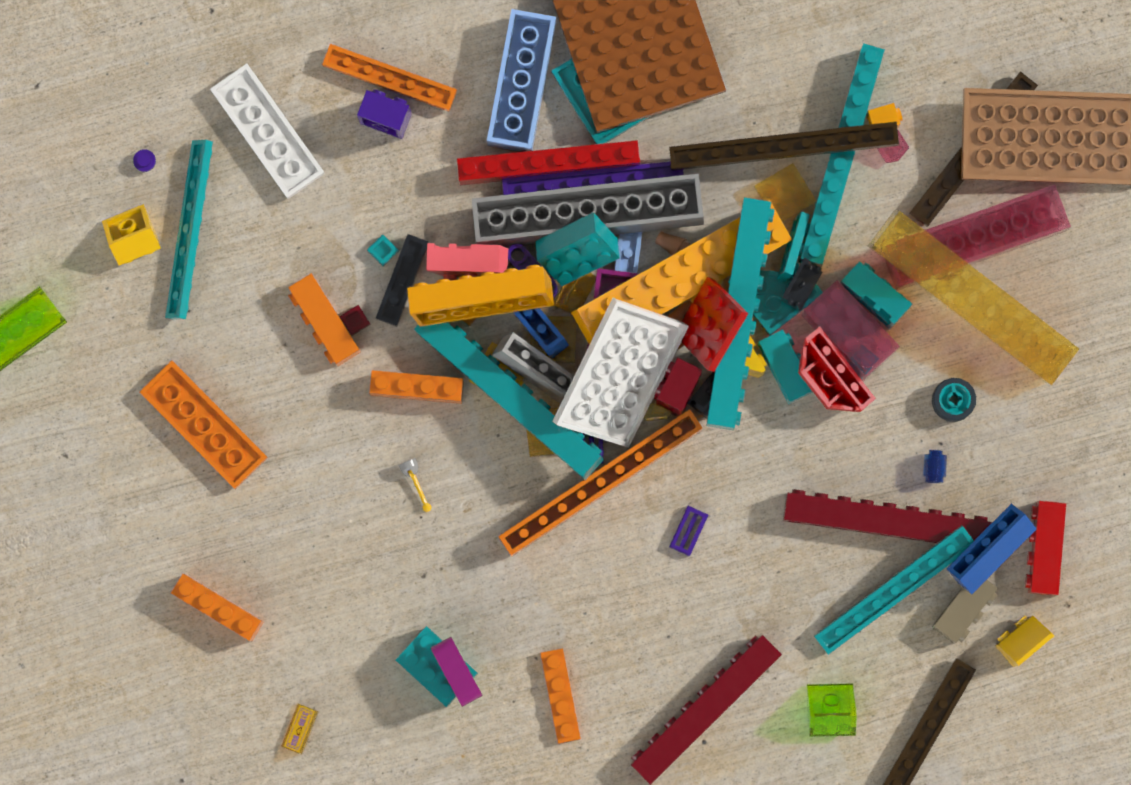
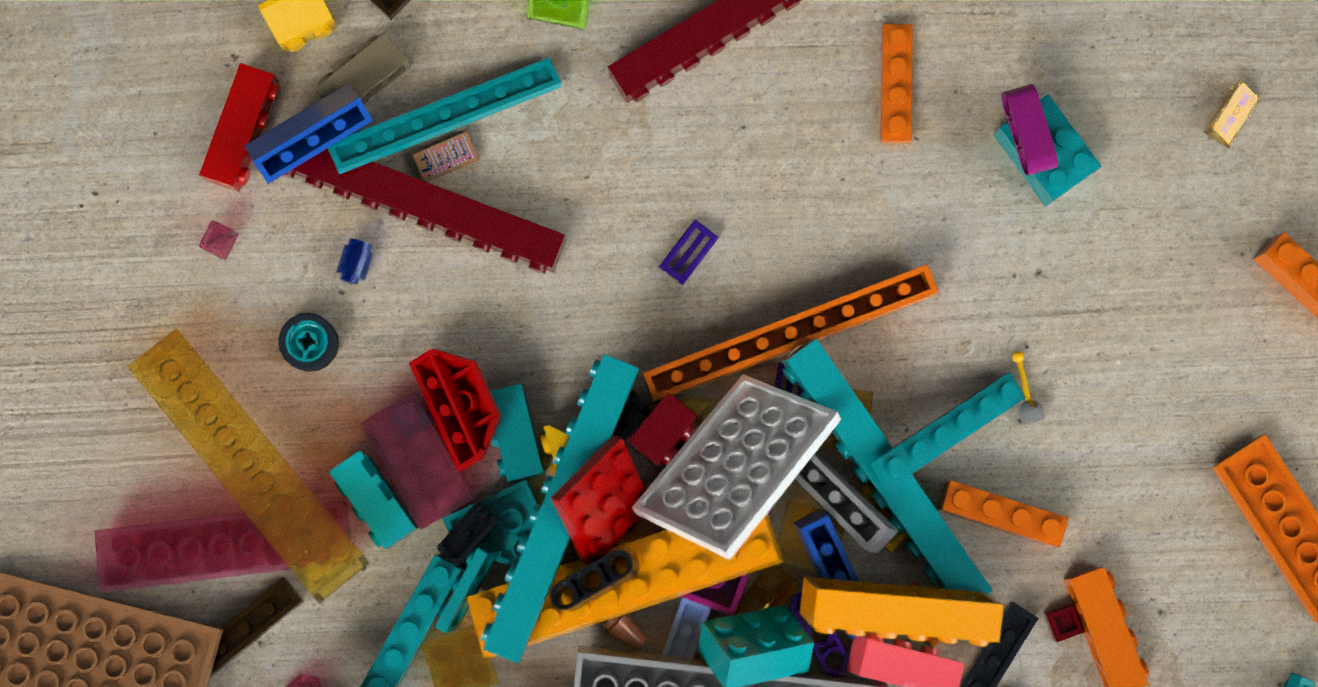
camera: 175 degrees left, 0 degrees up
(470, 436) = (947, 430): none -> teal plate
(712, 261) = (580, 580): none -> black beam
(887, 562) = (445, 157): none -> medium nougat tile
(1040, 460) = (218, 240): none -> clear pink slope

